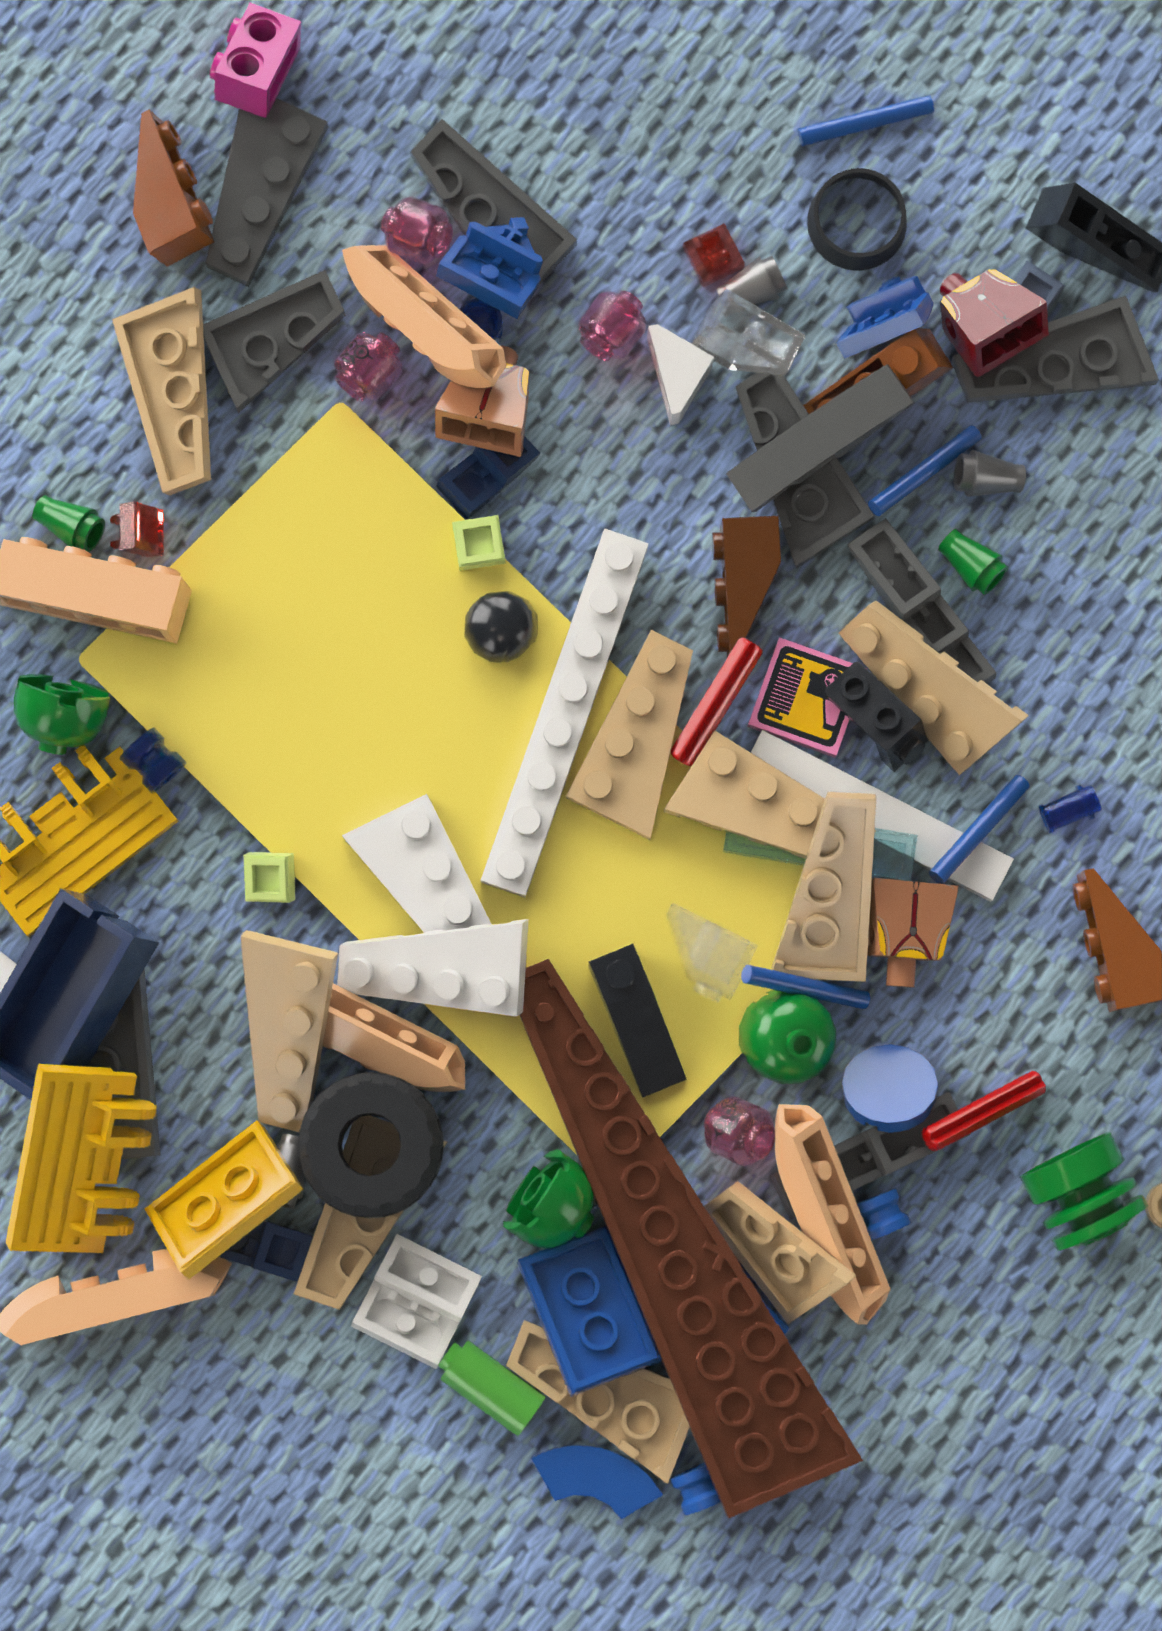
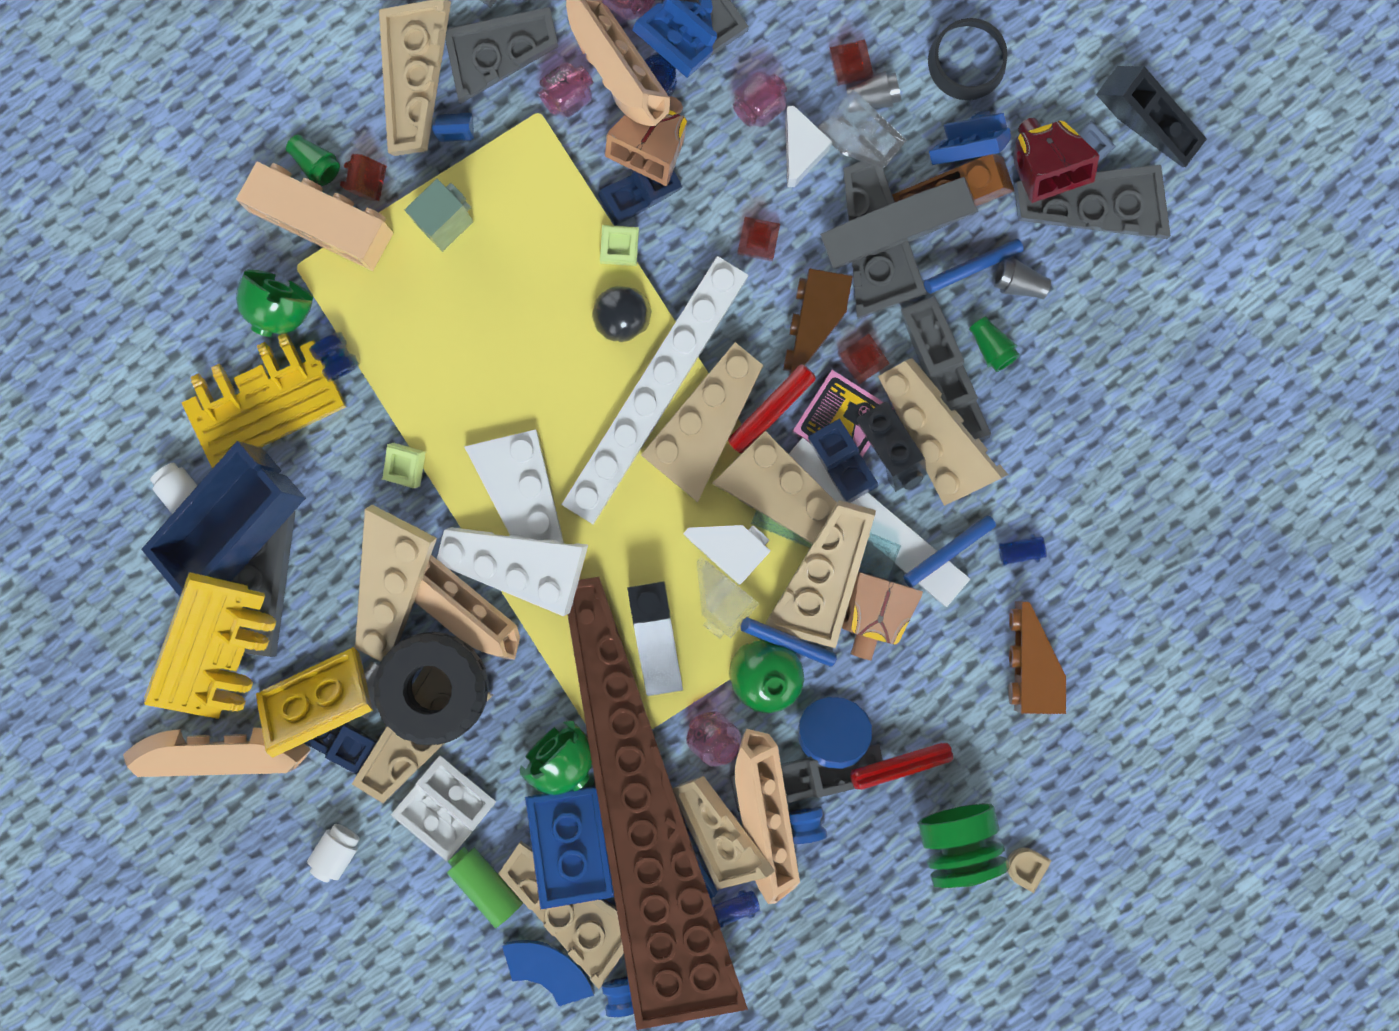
camera: 15 degrees right, 5 degrees up
(237, 443) = (454, 127): none -> blue slope
(250, 552) = (440, 213): none -> sand green brick
(289, 1389) = (333, 853): none -> white brick
(650, 496) = (758, 239): none -> clear red tile
(704, 883) = (731, 548): none -> white slope
(815, 616) = (863, 359): none -> clear red tile
(820, 747) = (843, 461): none -> dark blue slope
(820, 1339) = (737, 908): none -> clear blue pin

